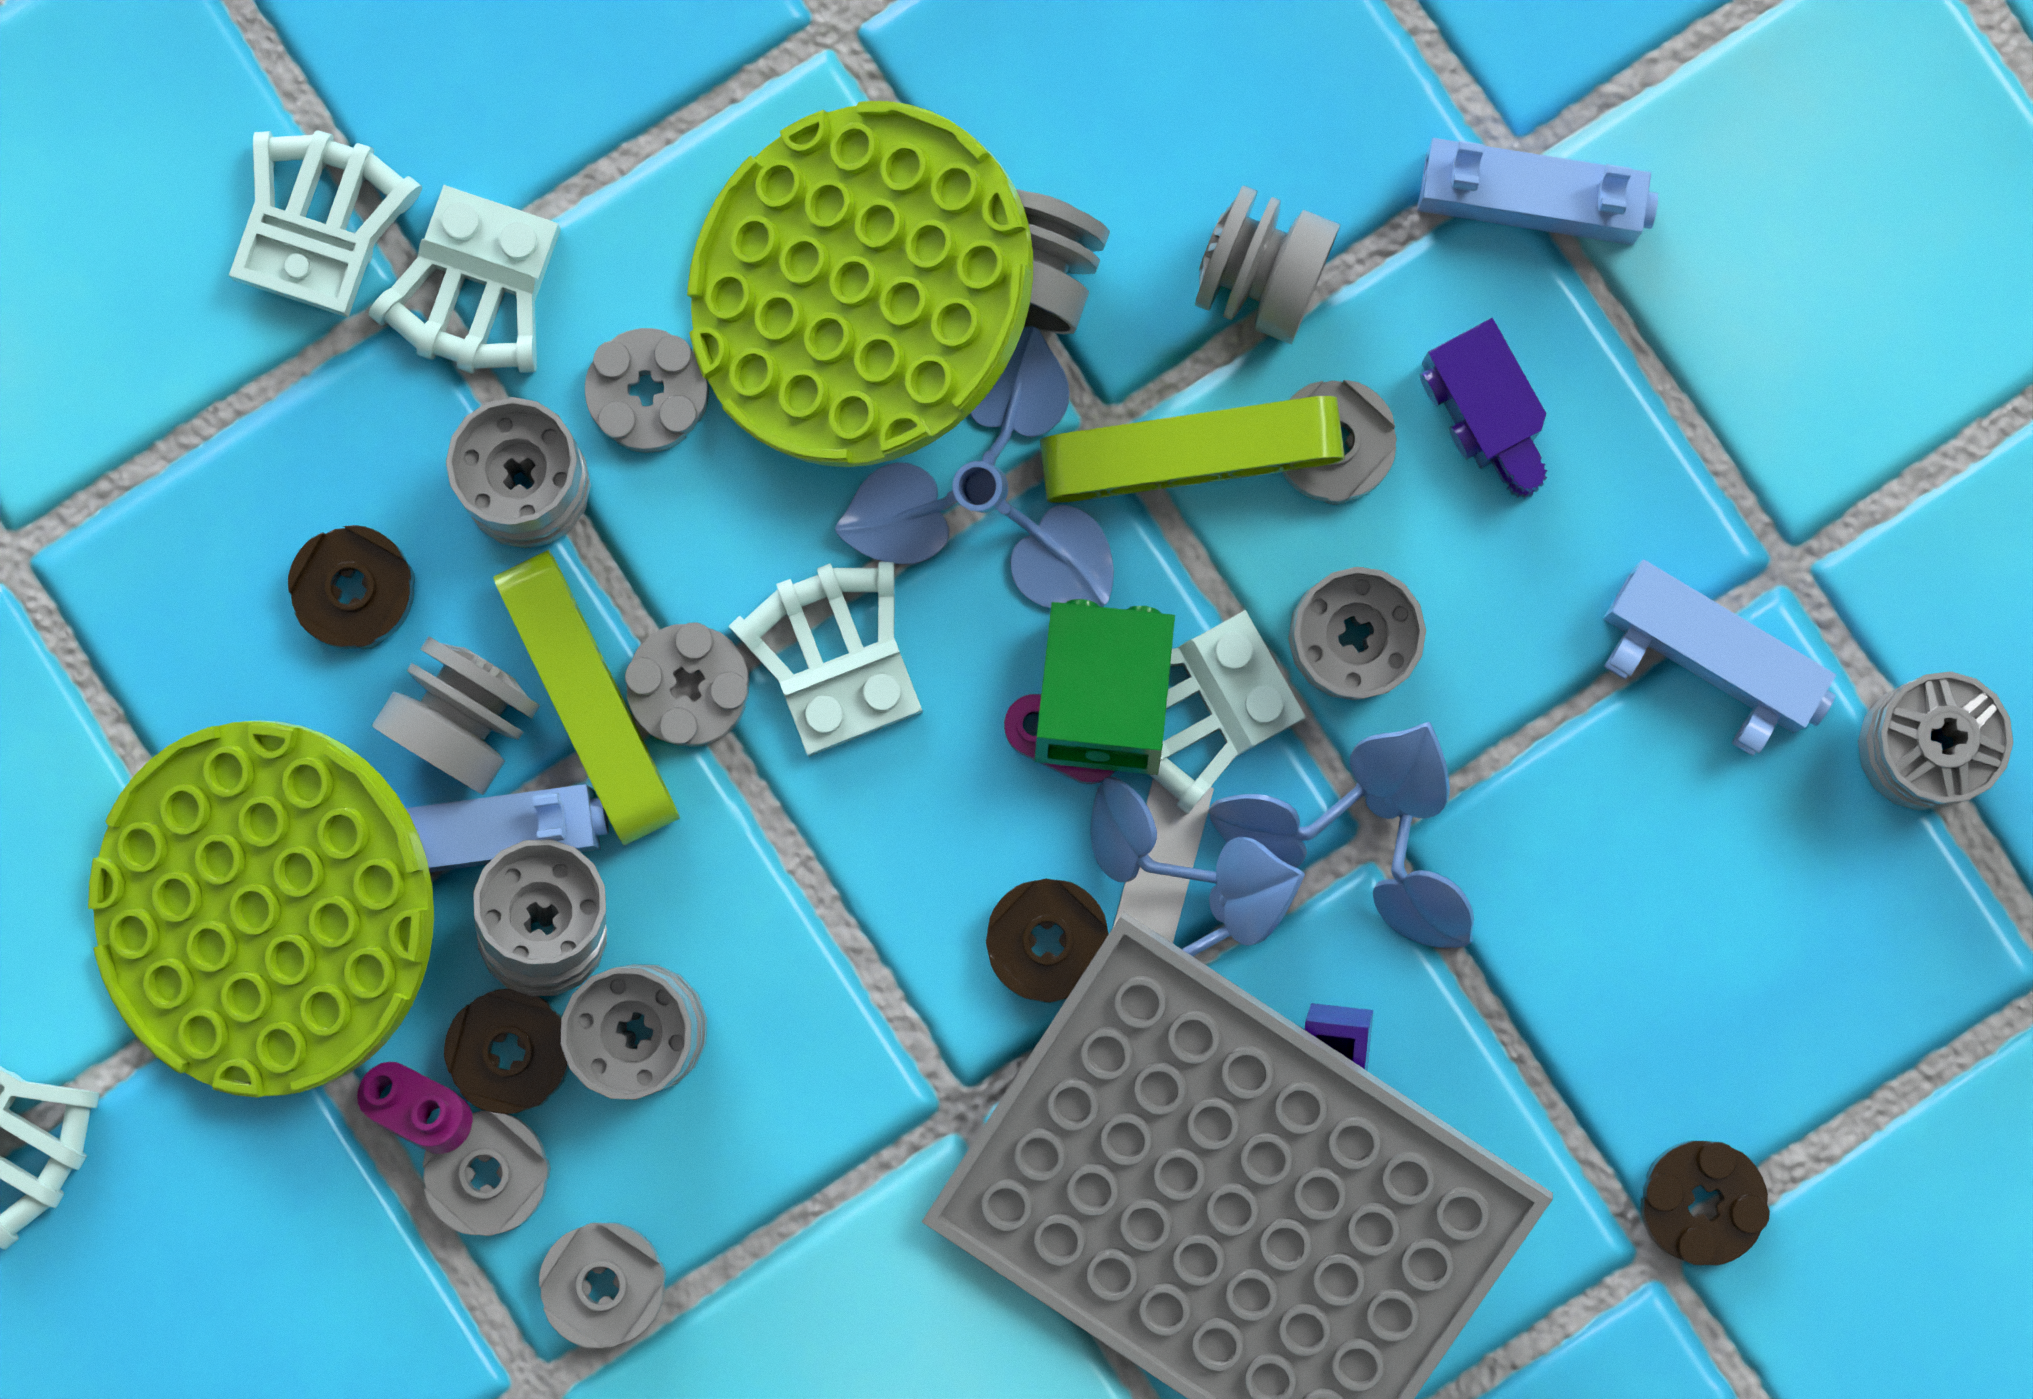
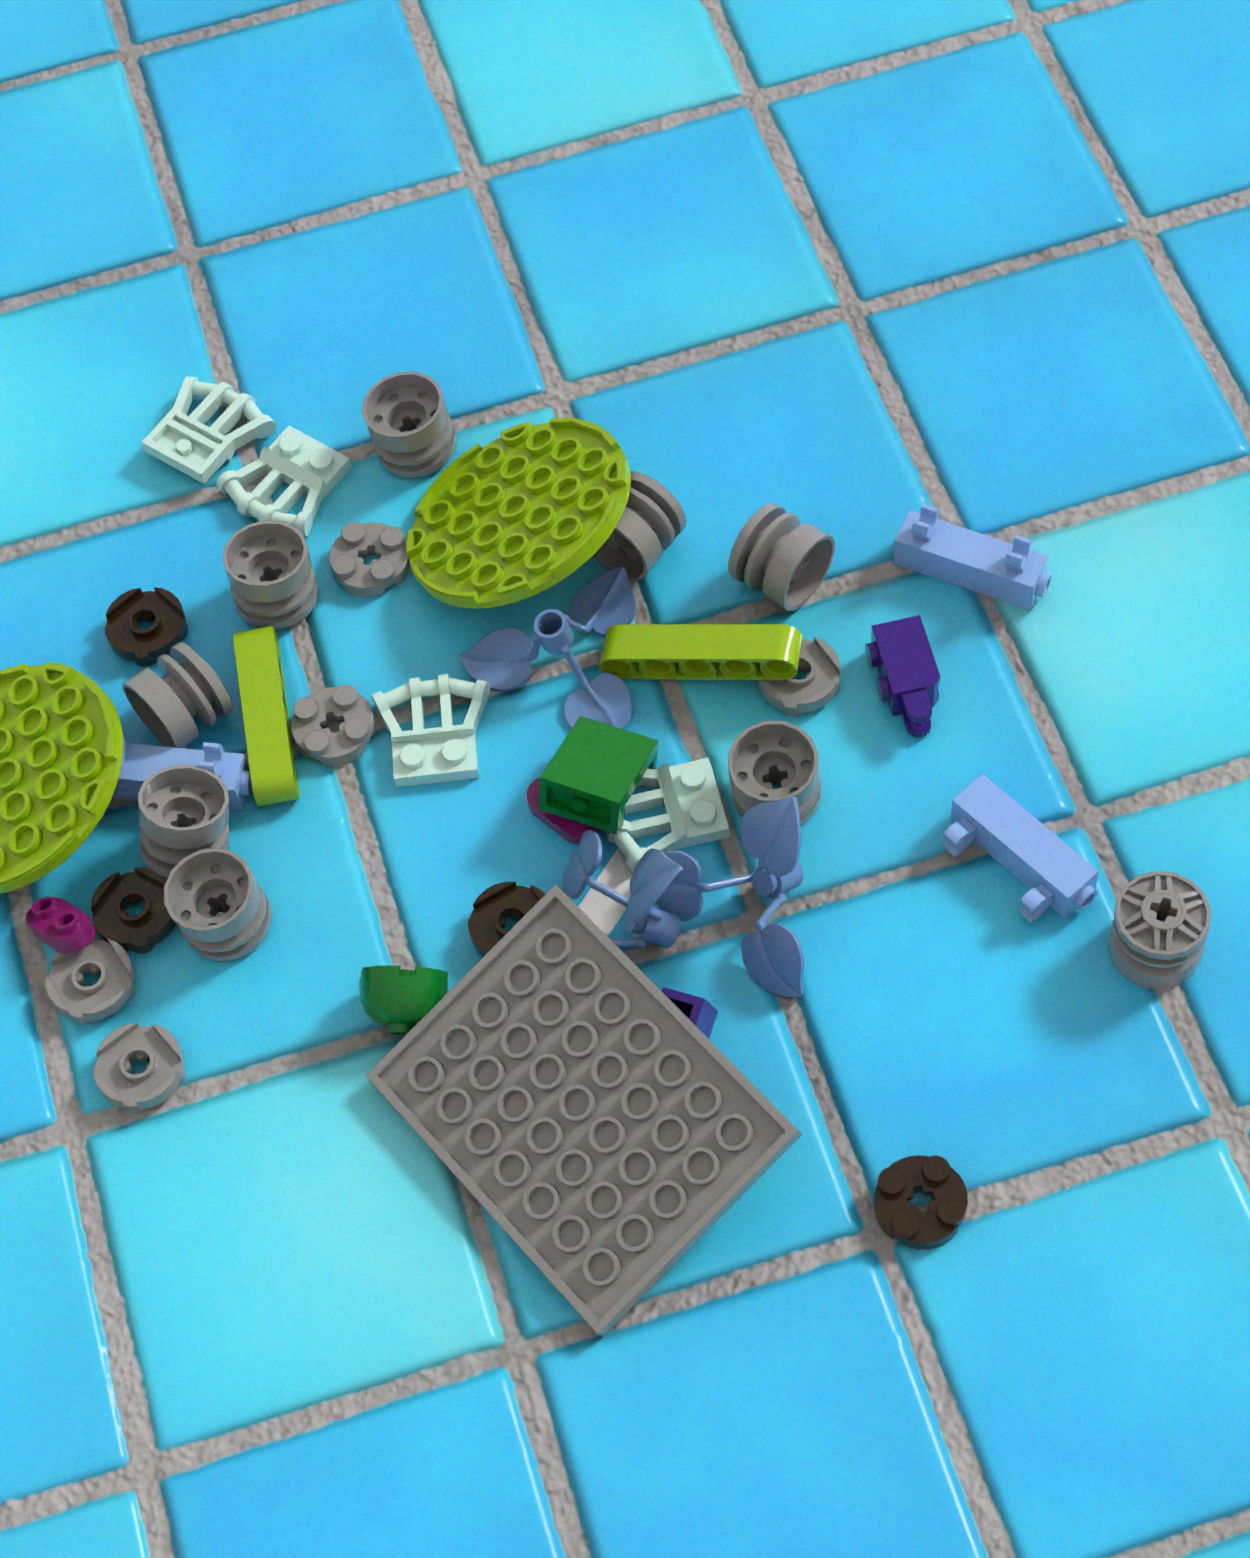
camera: 20 degrees right, 25 degrees down
(619, 128) = (409, 424): none -> light grey wheel
(938, 1098) = (400, 995): none -> green cylinder

